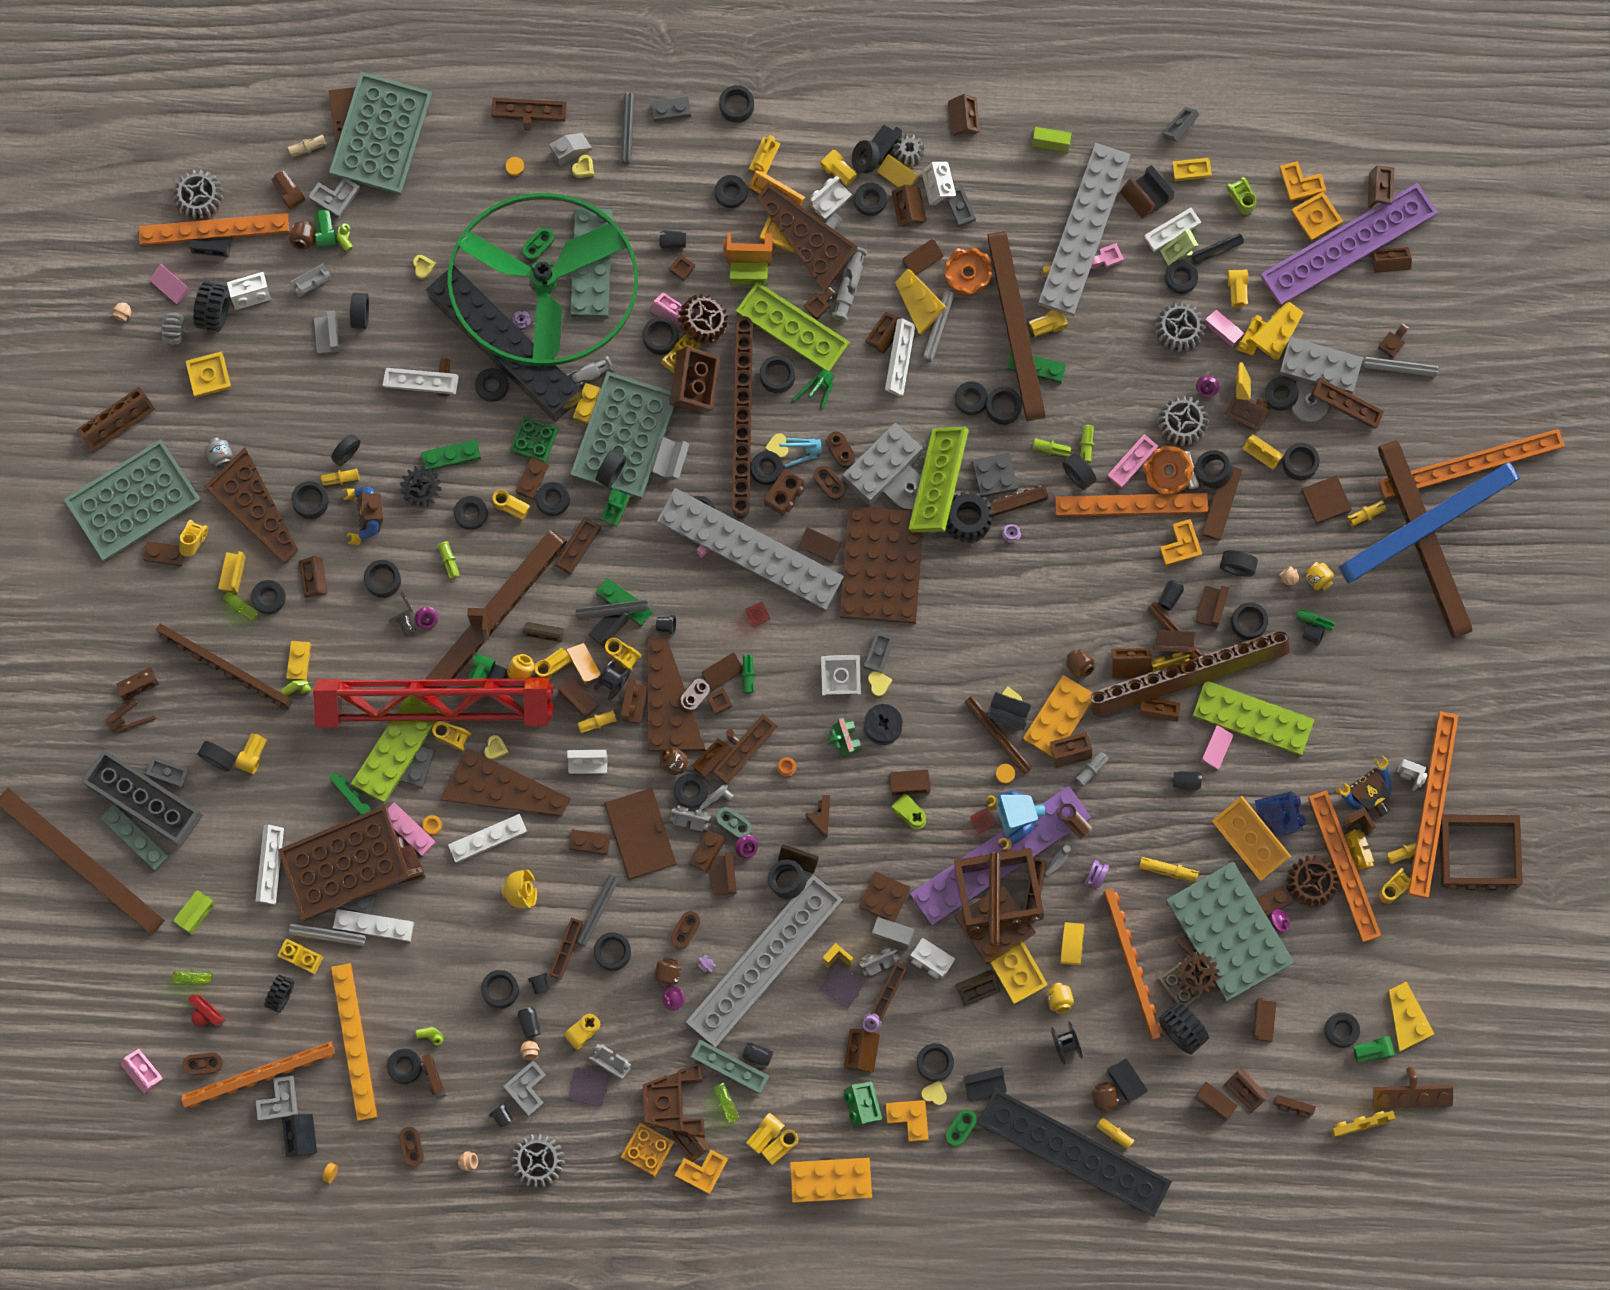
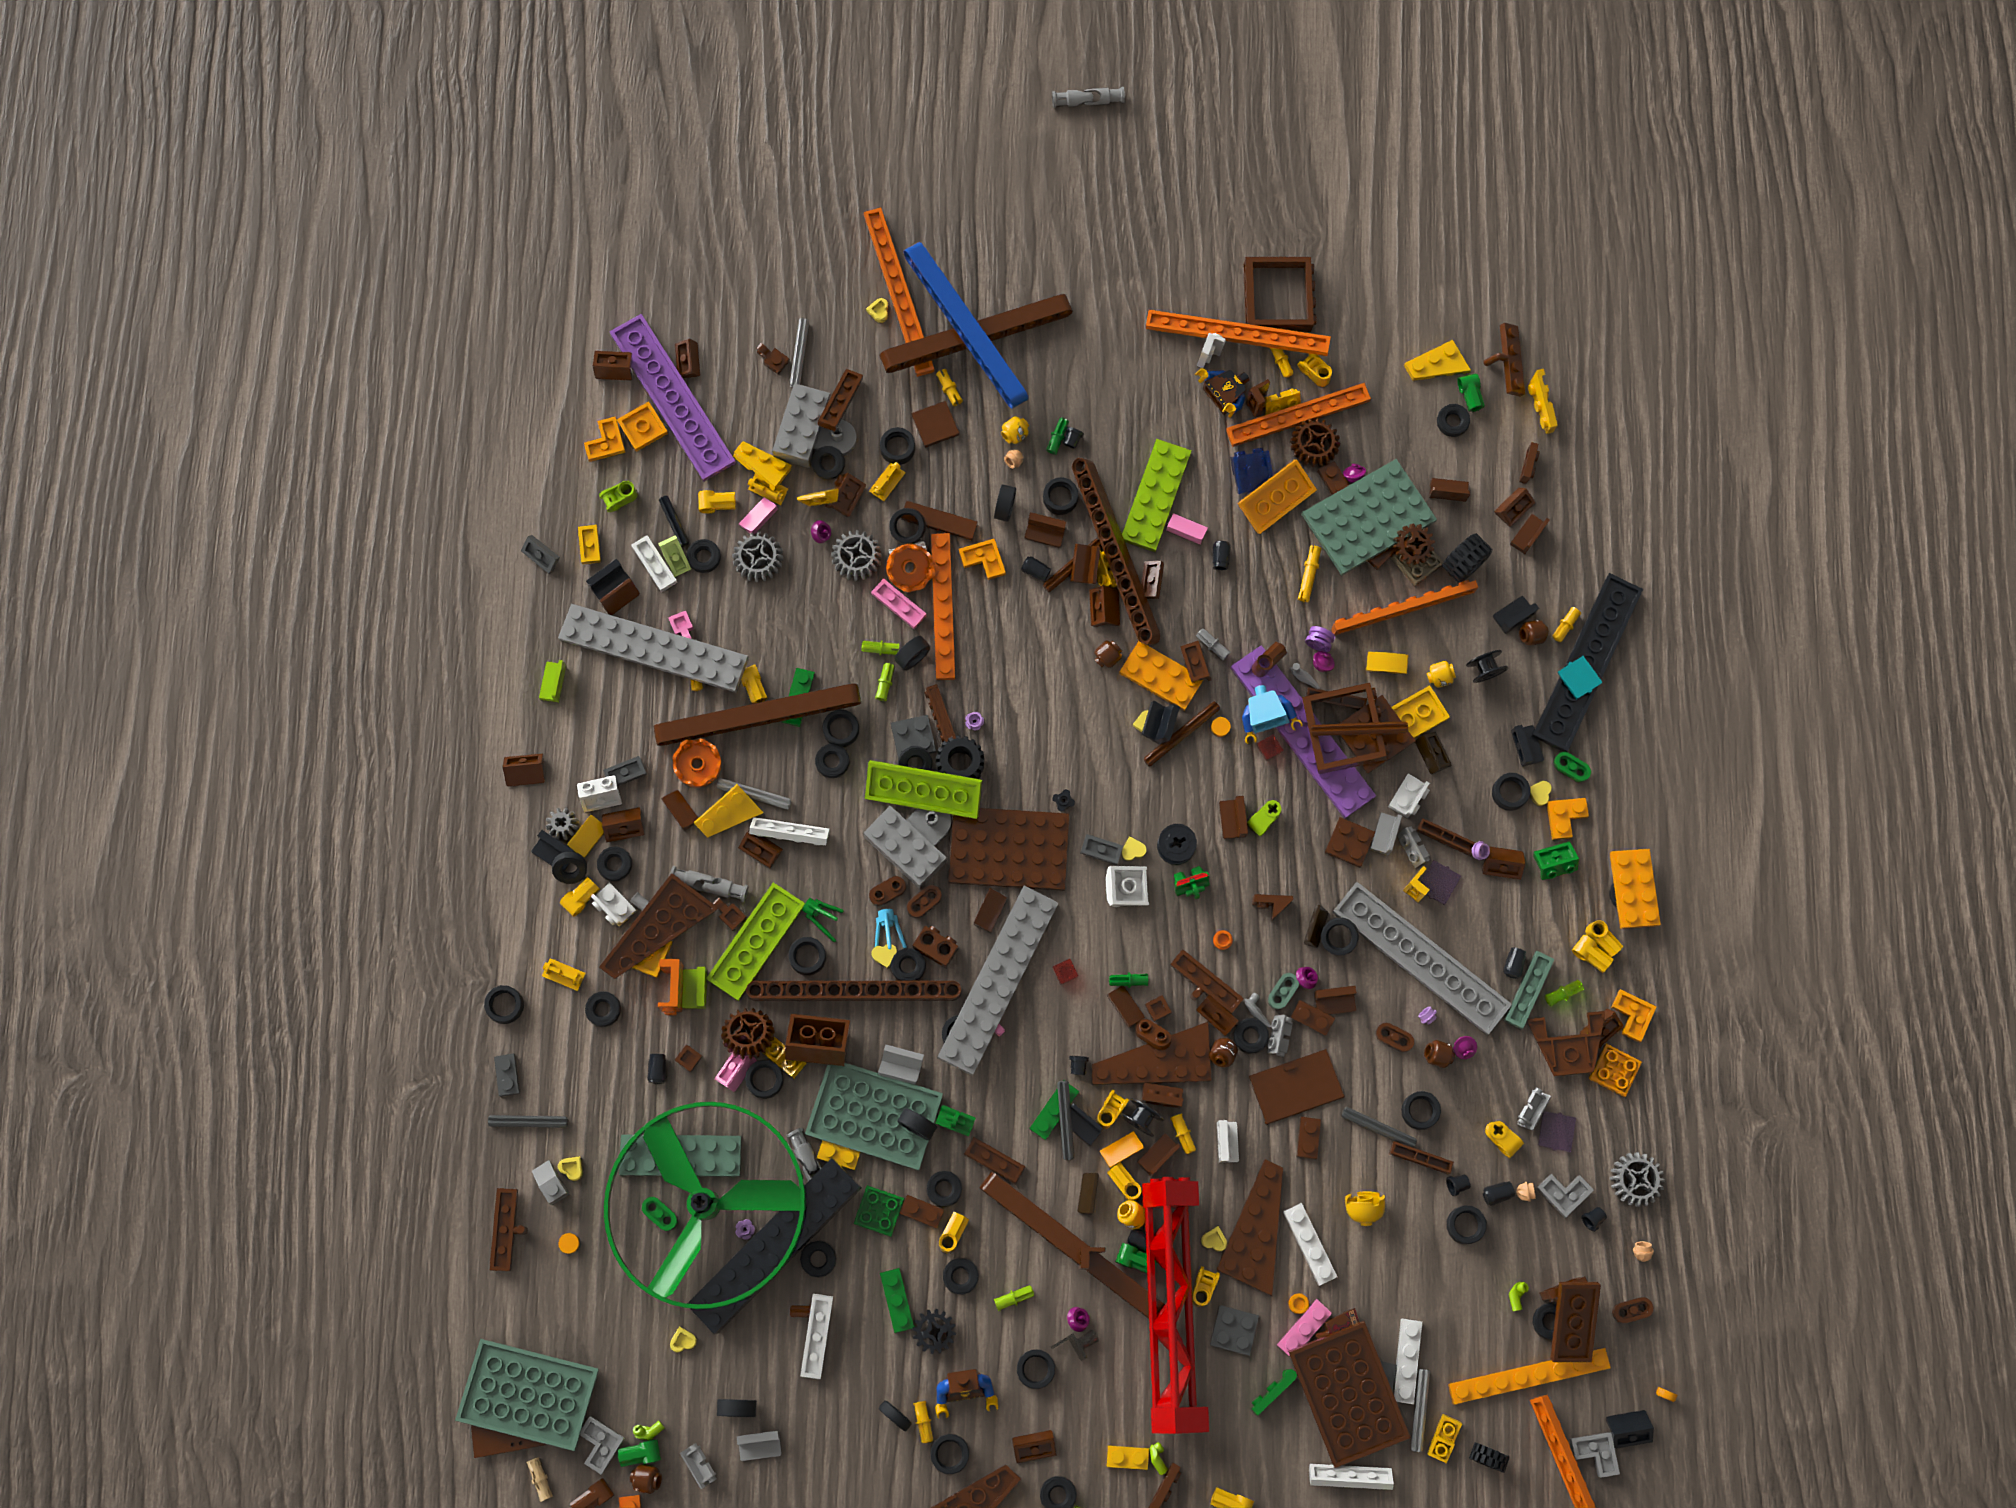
camera: 95 degrees left, 0 degrees up
(394, 752) = (1230, 1348): lime plate -> none
(400, 1079) = (1575, 1321): none -> reddish brown plate
(761, 179) = (594, 975): light orange plate -> none
(929, 612) = (1061, 806): none -> black plate
(978, 476) = (916, 751): none -> black tyre
(1056, 1140) = (1579, 677): none -> teal piece
(1073, 879) = (1323, 661): none -> magenta hat
(1451, 444) = (878, 310): none -> light yellow tile

